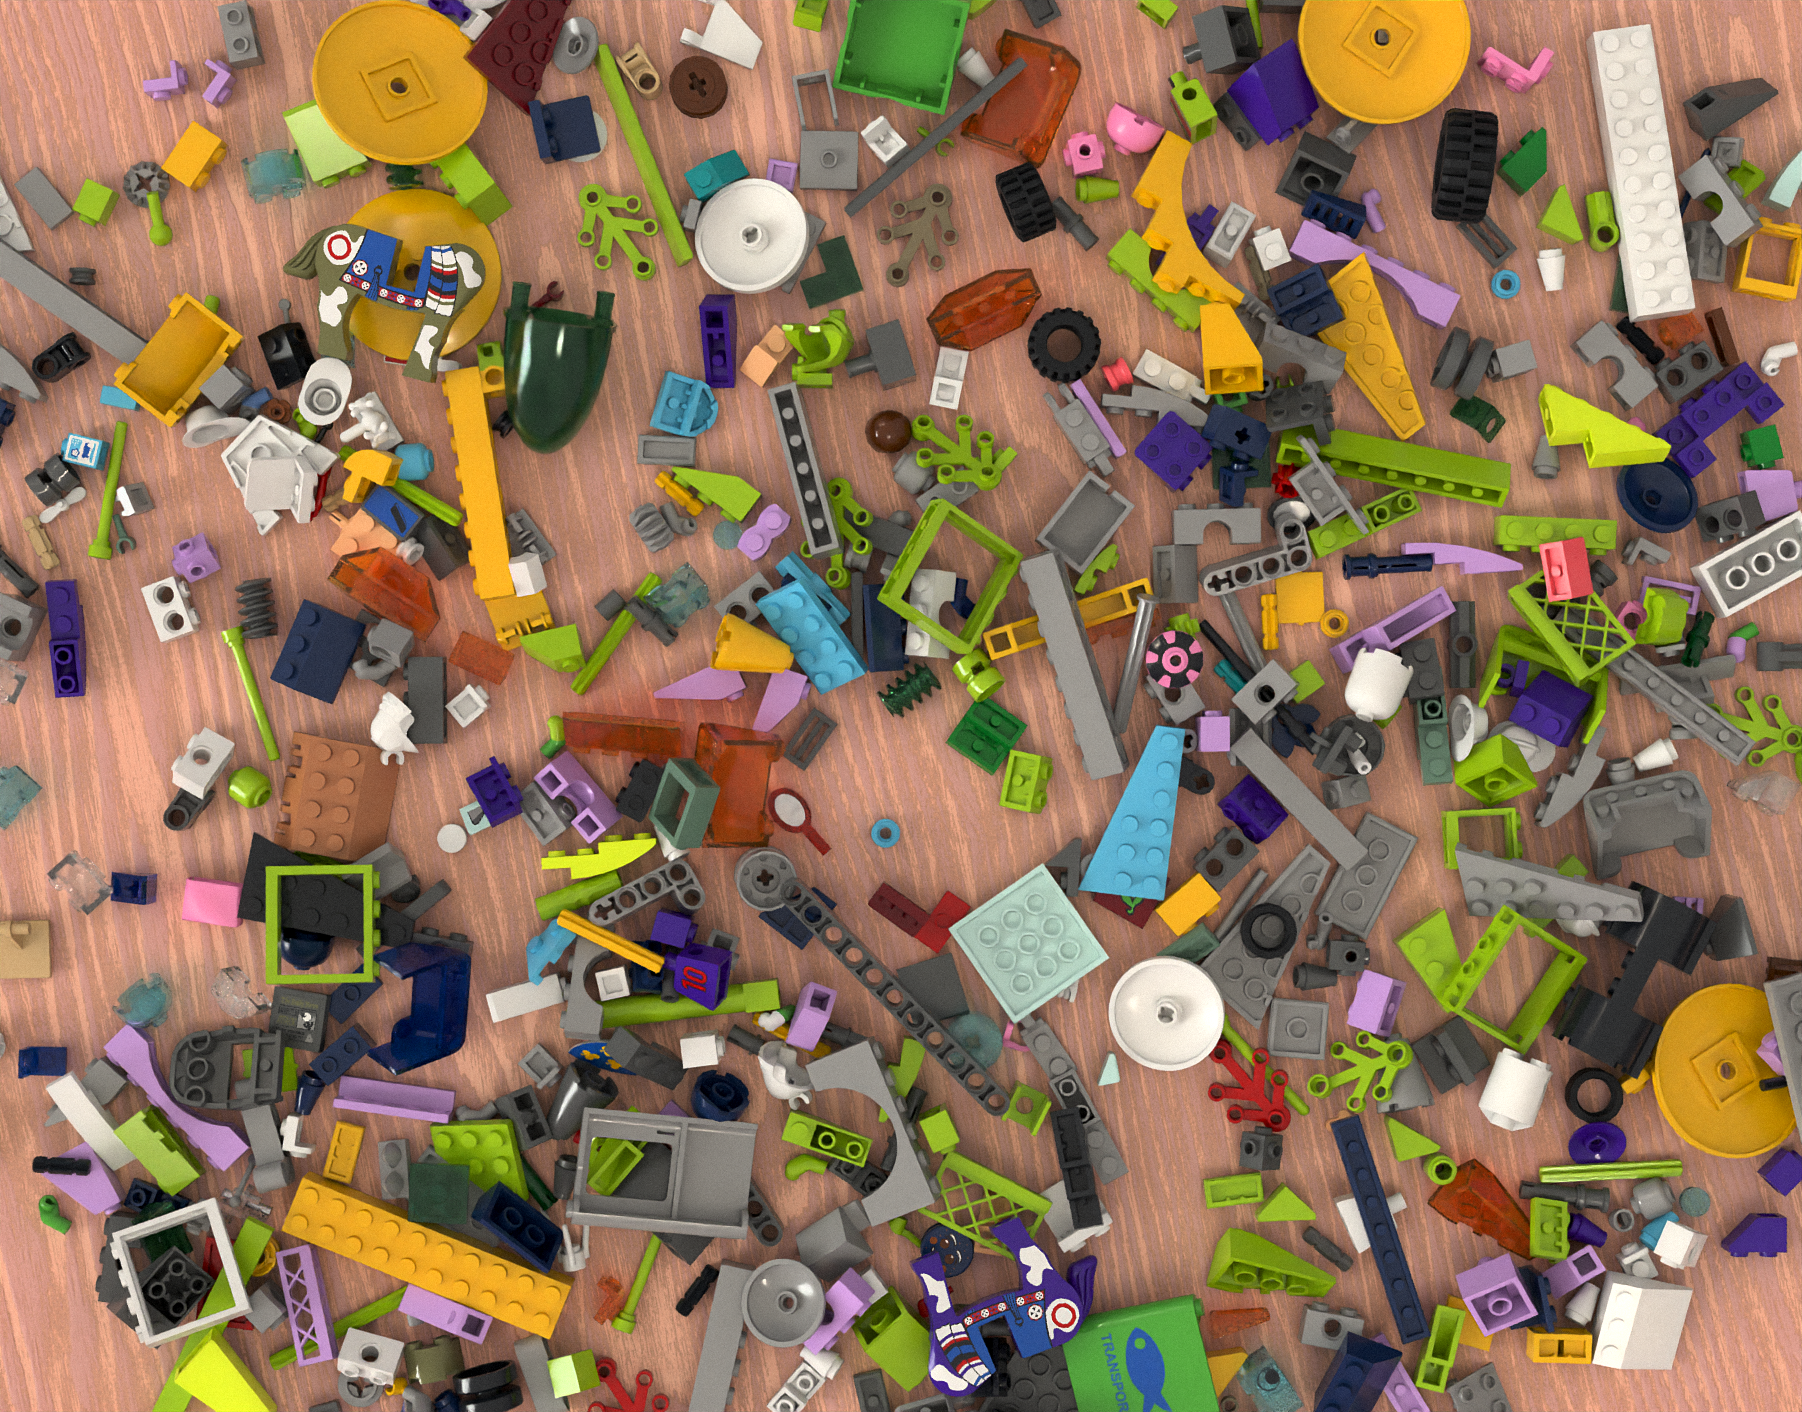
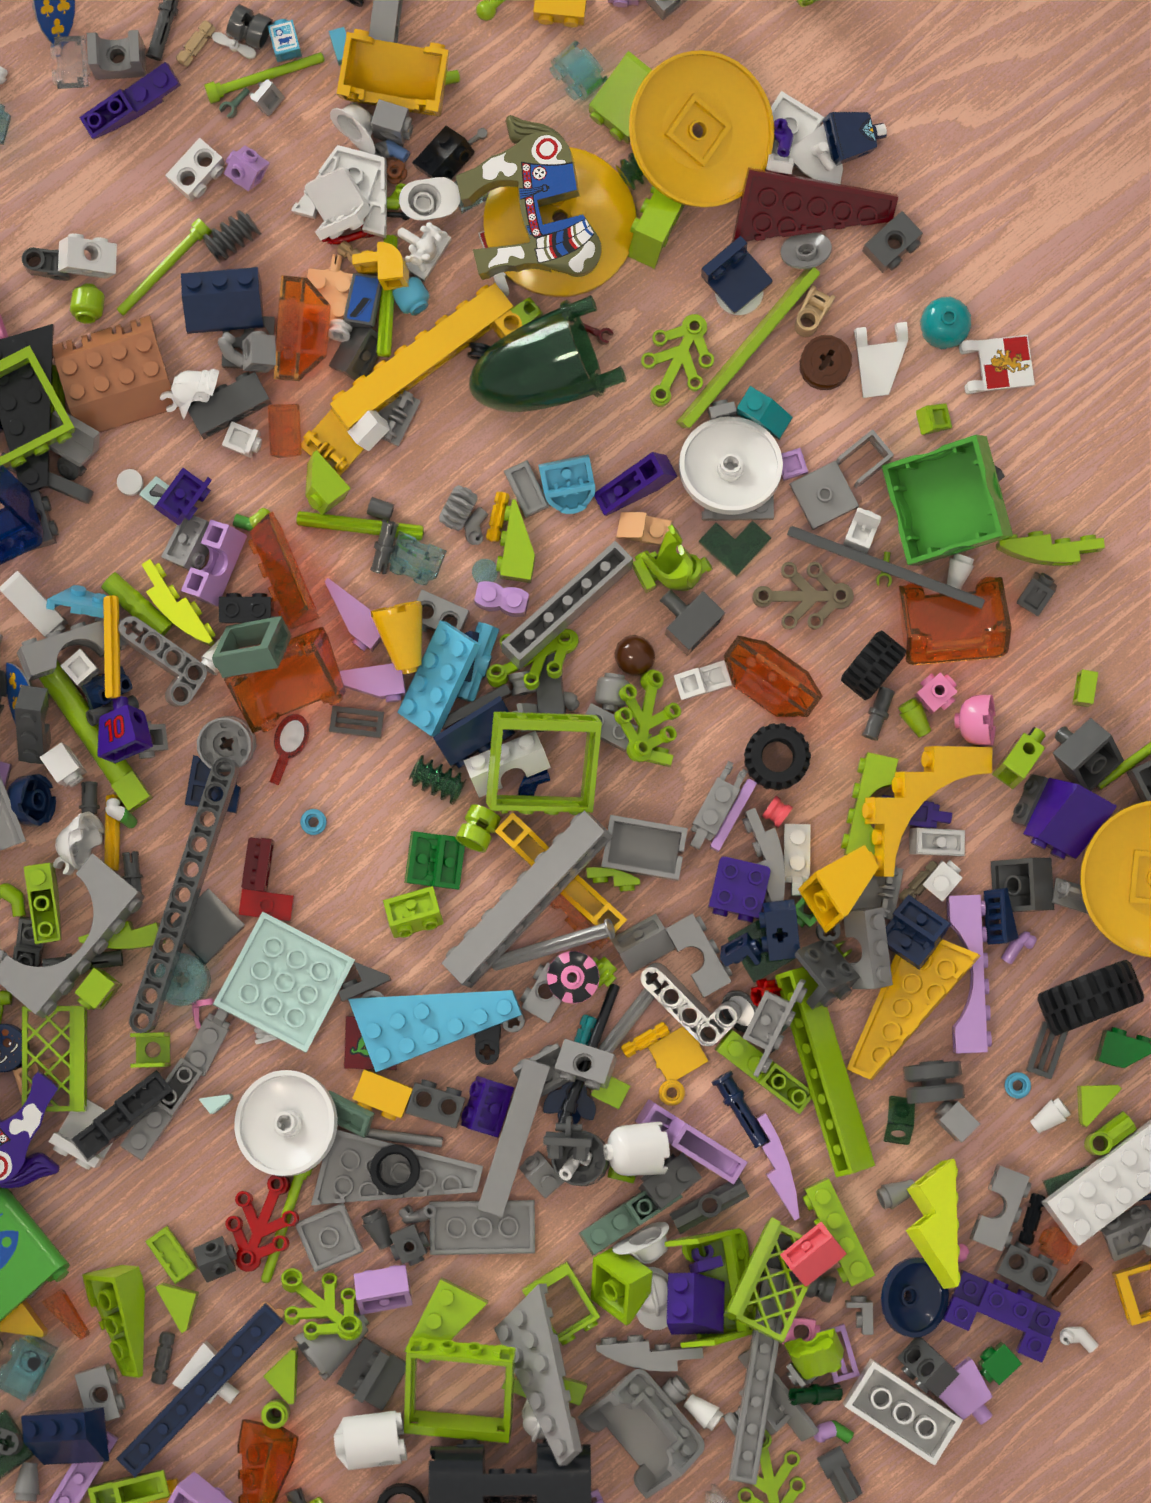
camera: 65 degrees right, 5 degrees down
(674, 928) = (148, 692): dark purple brick -> none
(810, 1016) = (134, 838): lavender slope -> none
(1212, 732) = (531, 1039): lavender brick -> none

